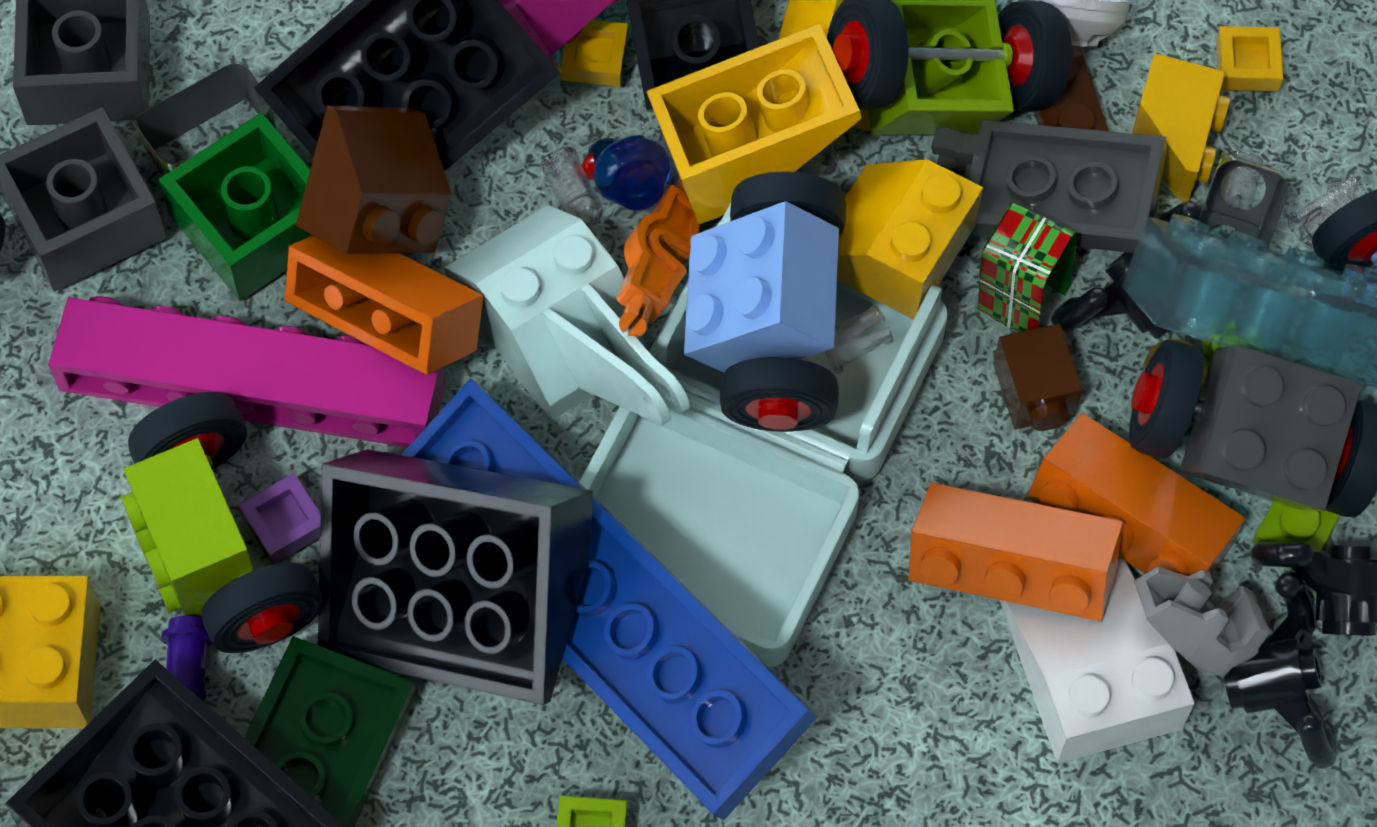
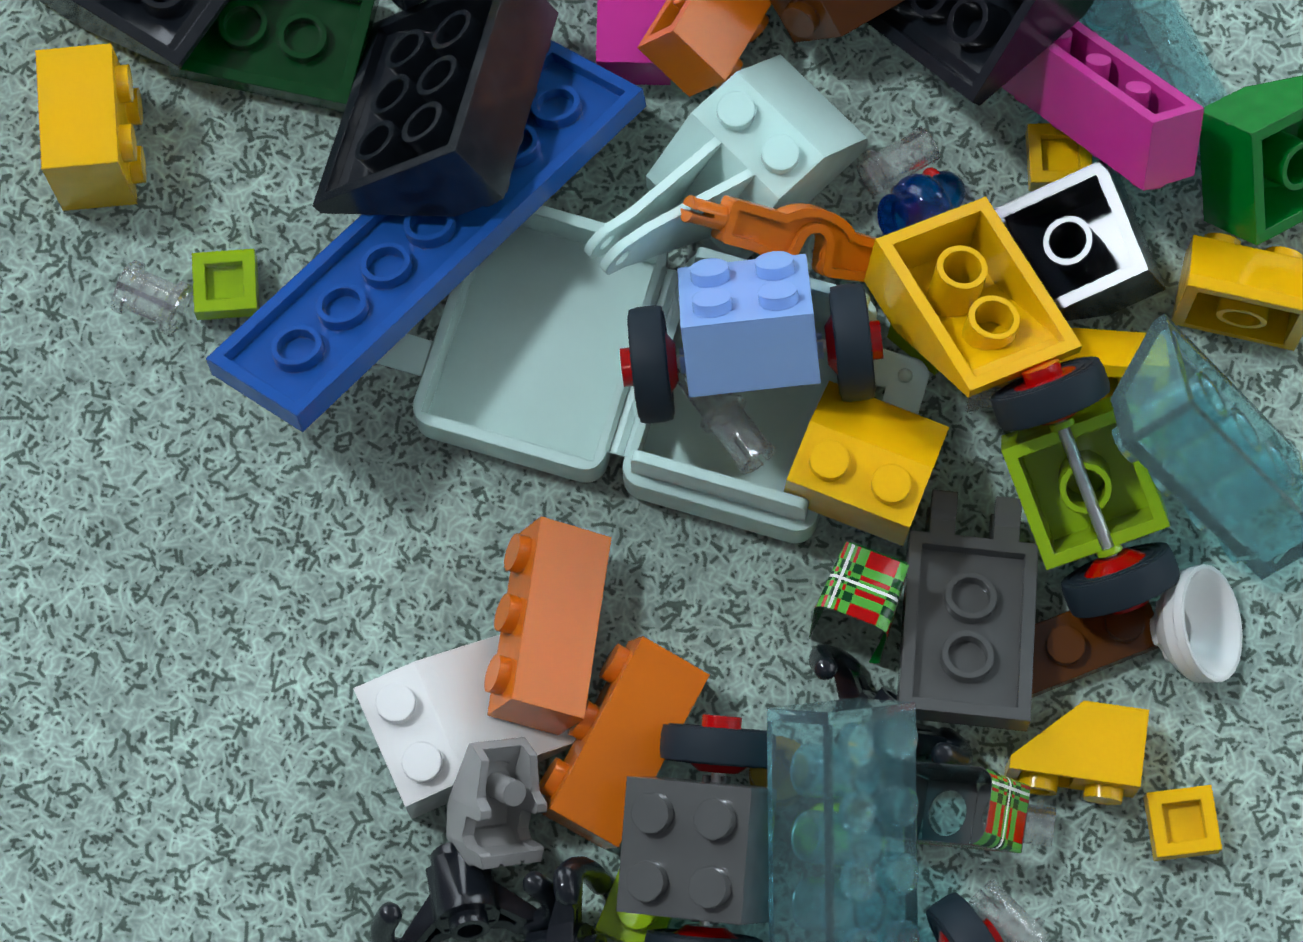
camera: 85 degrees right, 10 degrees up
(1037, 378) = (753, 635): reddish brown brick -> none

